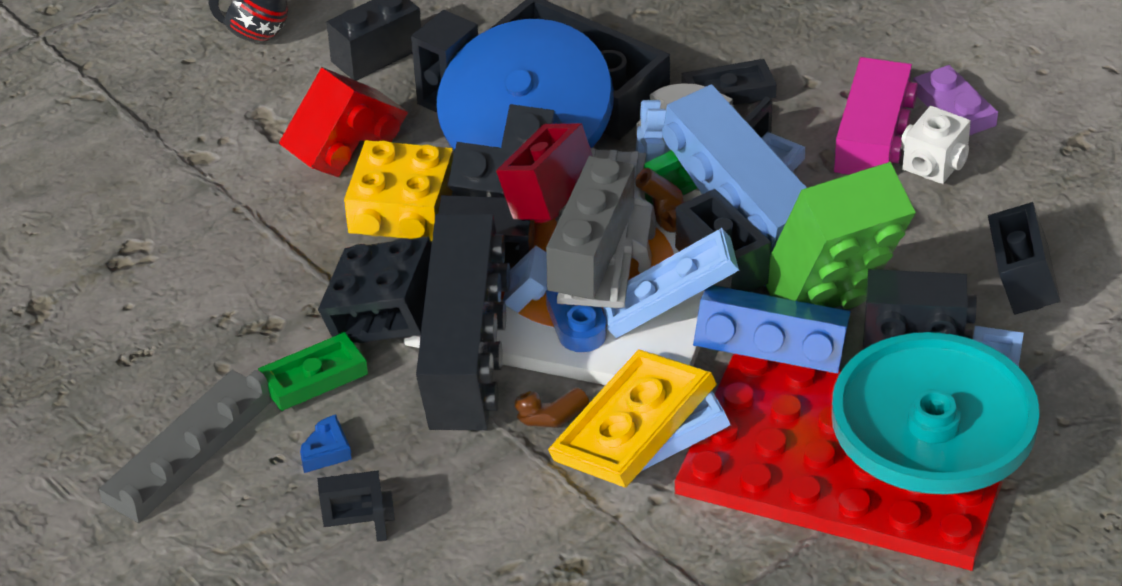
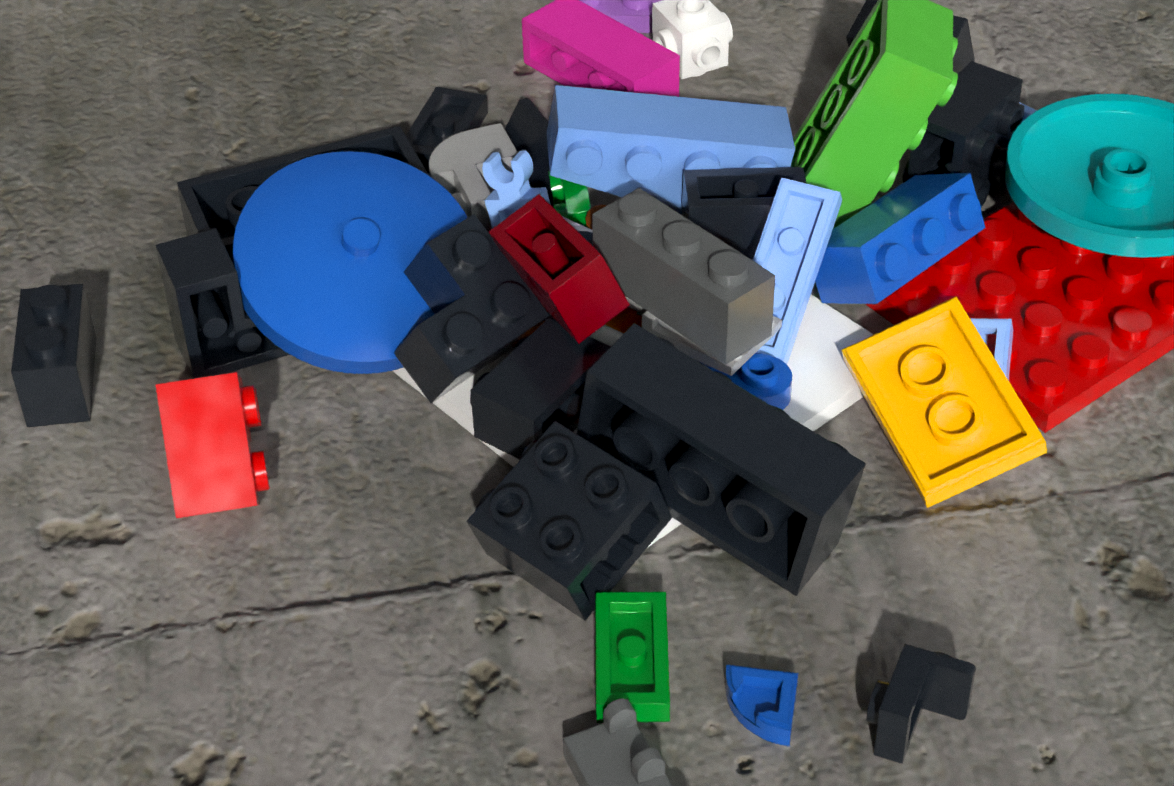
camera: 60 degrees left, 0 degrees up
(397, 189) = (382, 440): yellow brick -> none
(553, 414) = (860, 445): reddish brown arm -> none

